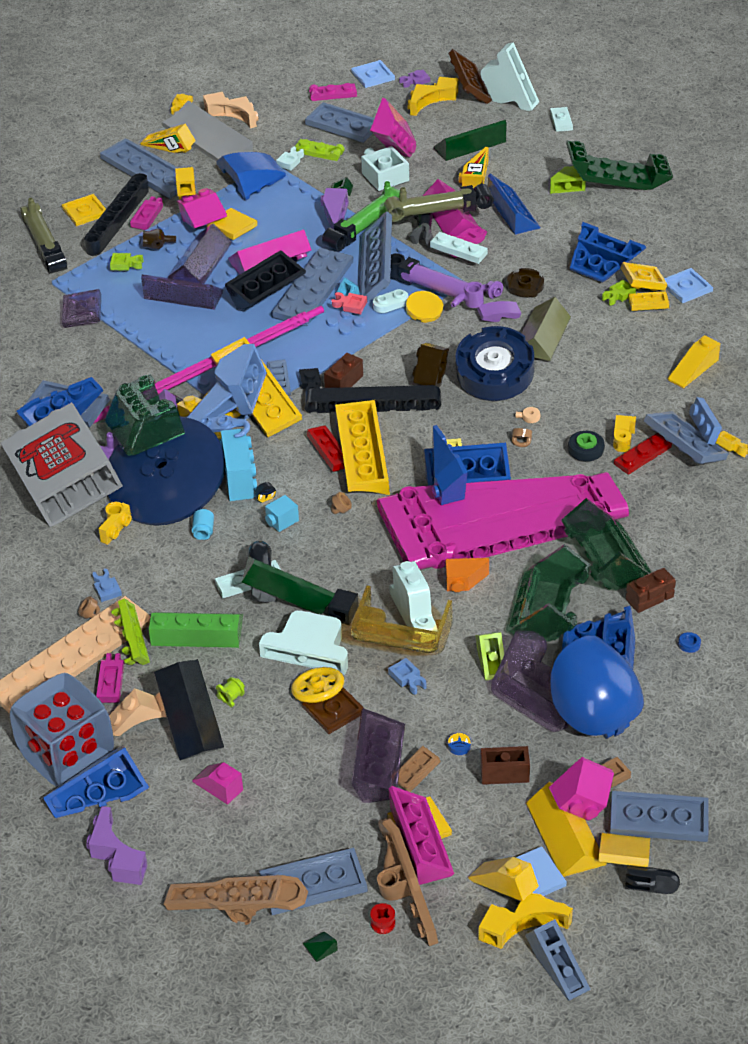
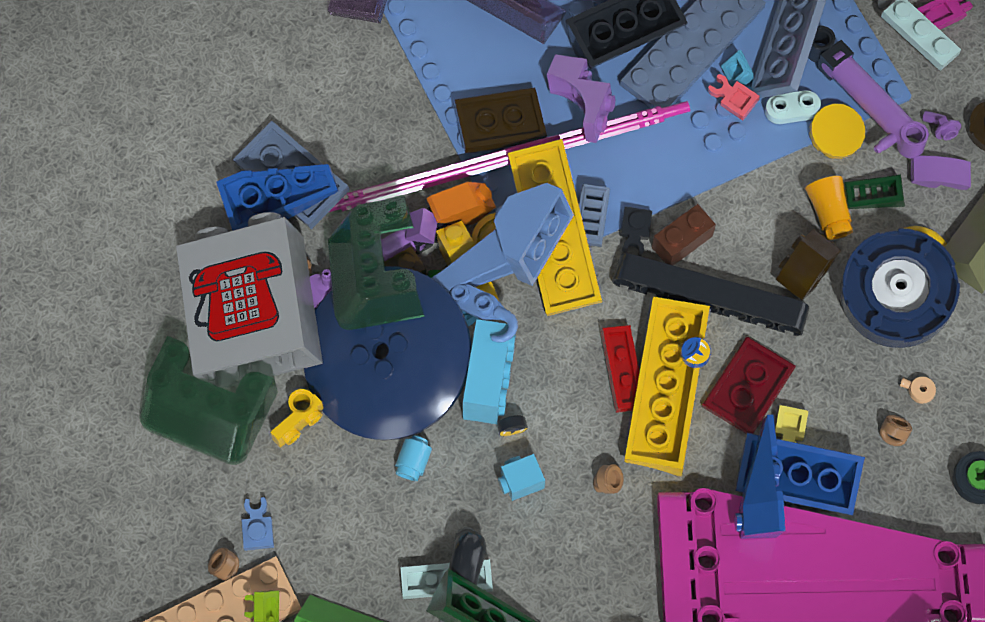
camera: 15 degrees right, 25 degrees up
(47, 531) = (202, 413): none -> clear green windscreen
(189, 385) = (463, 203): none -> orange slope
(196, 346) = (499, 120): none -> dark brown plate
(241, 315) = (572, 80): none -> medium lavender arch
(374, 421) = (695, 352): none -> tile
(413, 438) = (748, 386): none -> dark red tile
(431, 333) = (831, 206): none -> light orange plant
(470, 325) = (873, 183): none -> dark green slope

